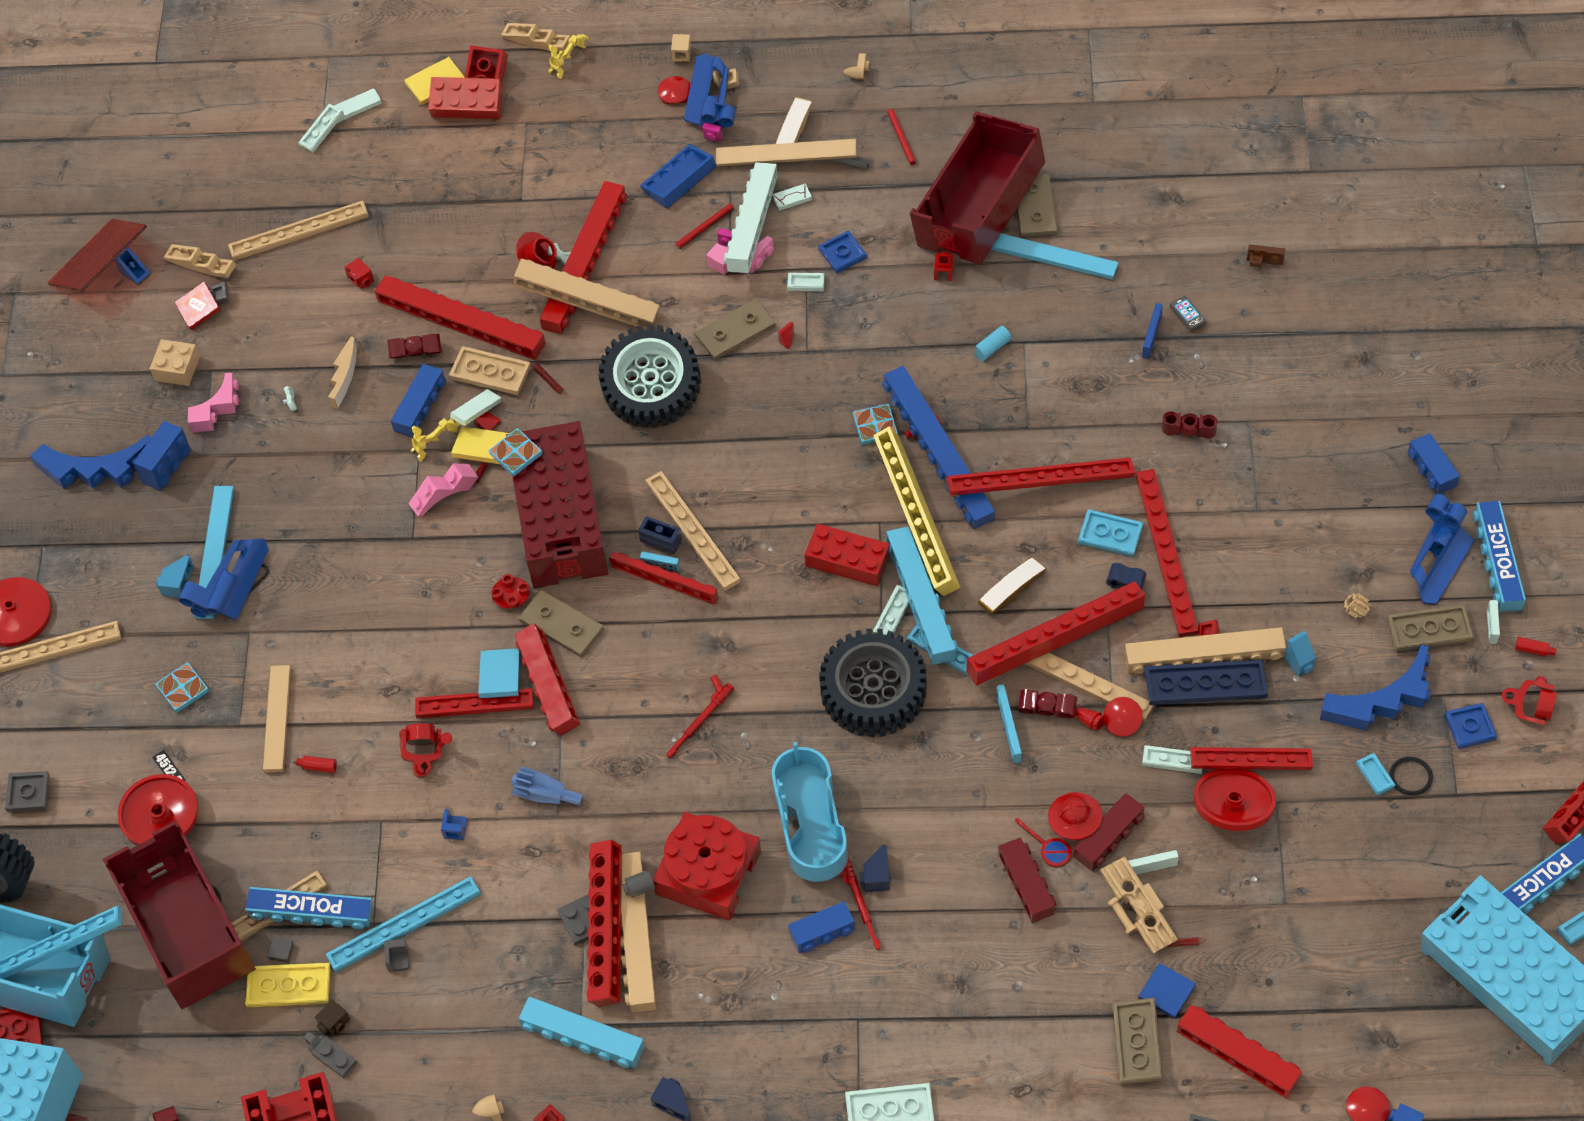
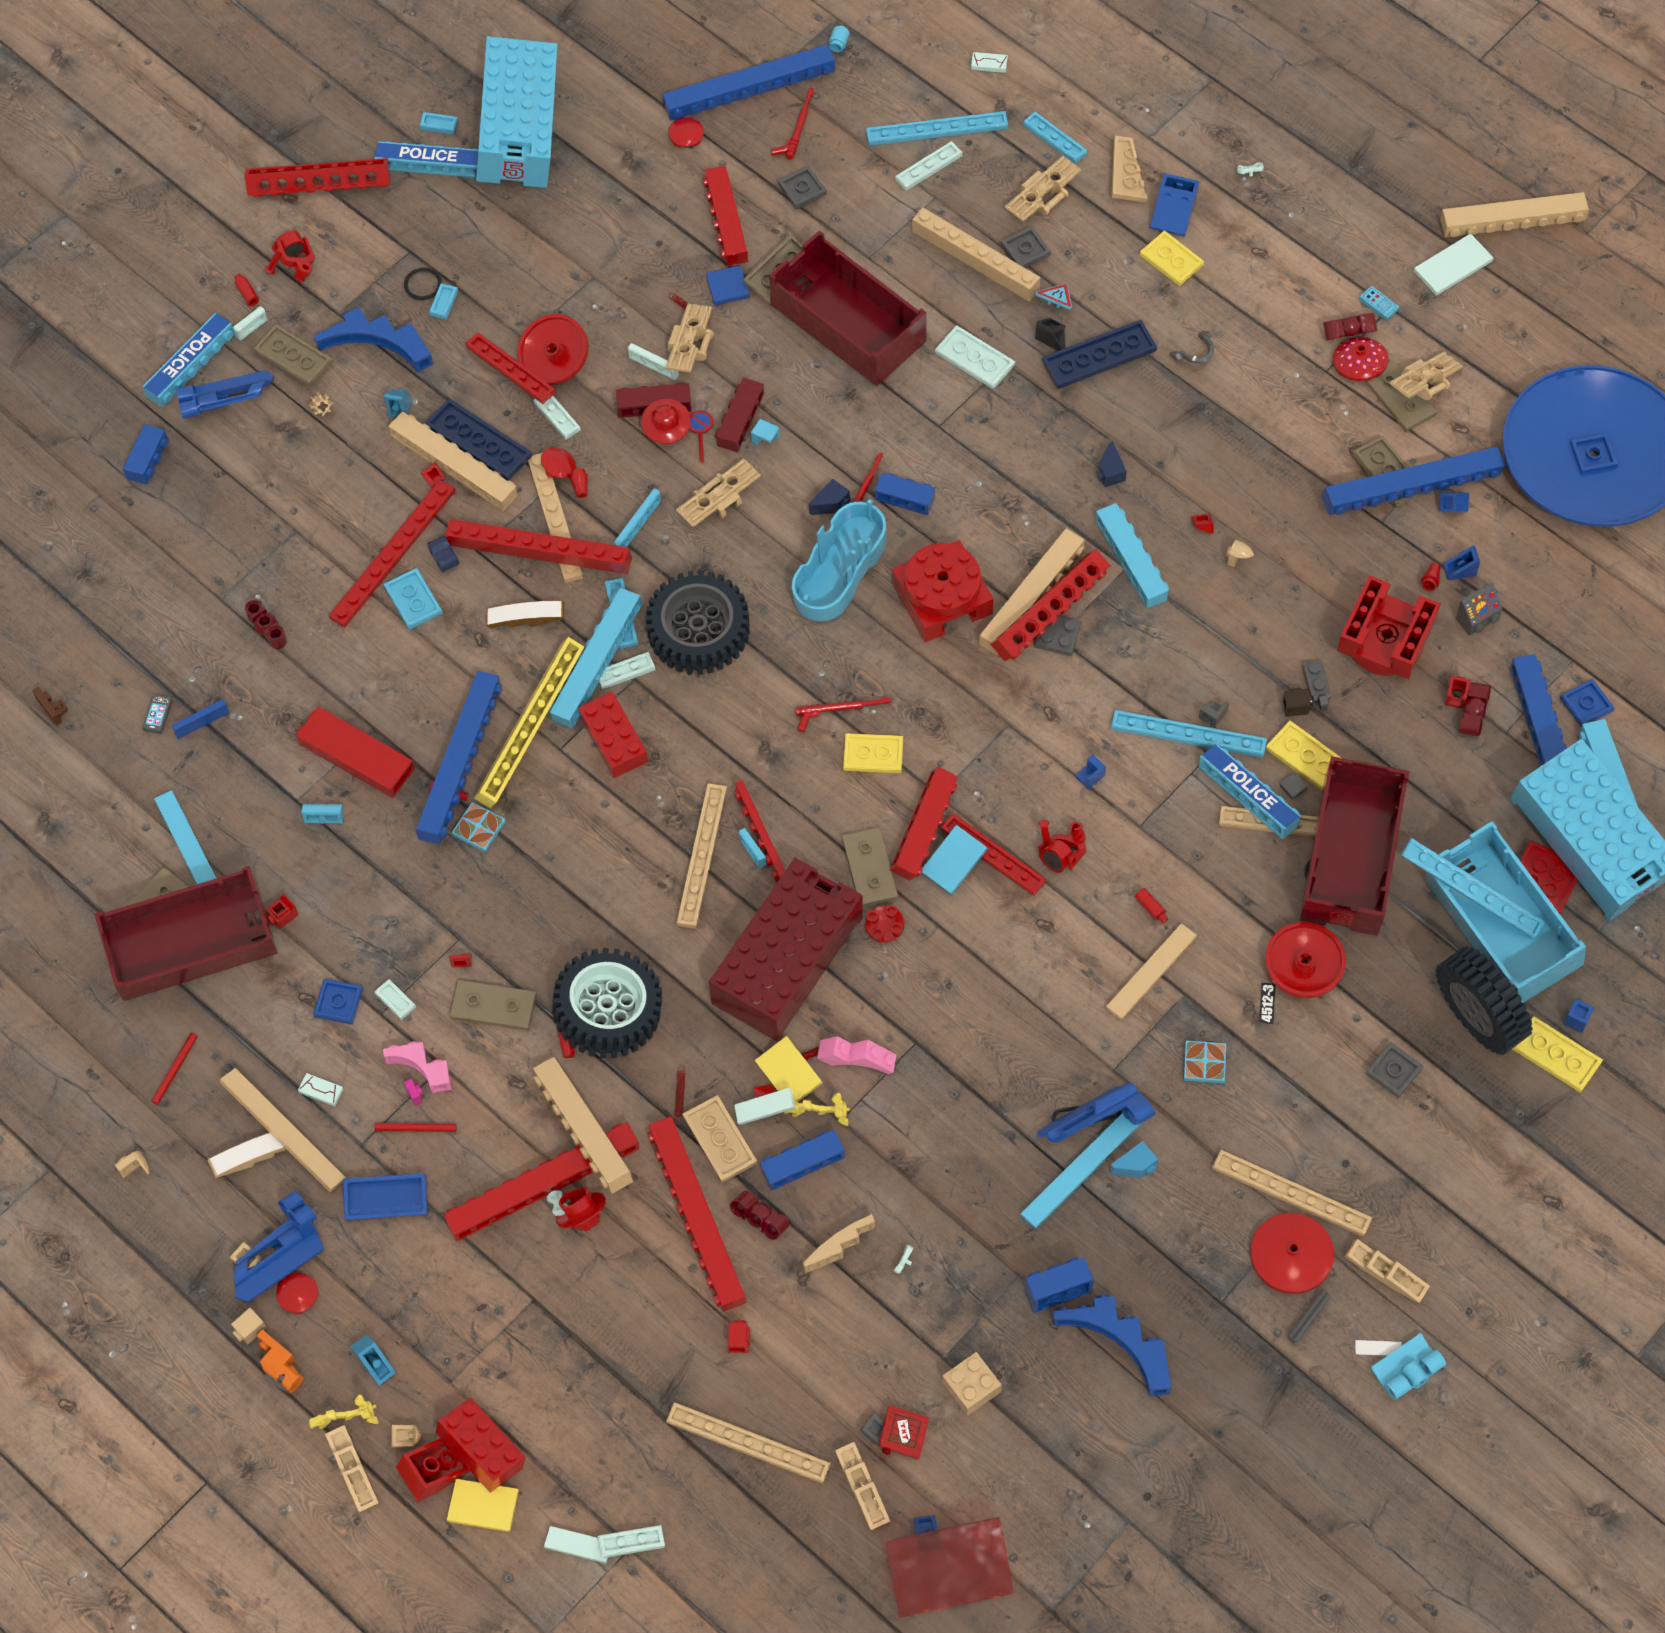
camera: 140 degrees left, 5 degrees up
(203, 416) = (959, 1304): bright pink arch -> none
(515, 452) = (786, 989): tile -> none
(520, 73) = (405, 1436): none -> tan plate
(542, 788) = (1005, 744): medium blue piece -> none
(586, 91) = (372, 1359): none -> dark azure slope
(638, 884) = (1004, 605): dark grey brick -> none
(641, 706) = (873, 753): none -> light yellow tile
(642, 48) = (278, 1364): none -> orange plate
(660, 534) = (731, 865): dark blue brick -> none
(712, 132) = (318, 1211): dark pink plate -> none
(751, 218) = (378, 1081): light aqua brick -> none
(963, 795) = (720, 496): none -> tan piece
(988, 880) = (764, 431): none -> medium azure panel
(1019, 396) = (355, 752): none -> red brick
(1030, 1036) = (847, 309): none -> dark red piece
(1040, 476) = (417, 667): red plate -> none
(1047, 703) = (597, 511): dark red piece -> none
(1470, 726) = (348, 280): blue tile -> none

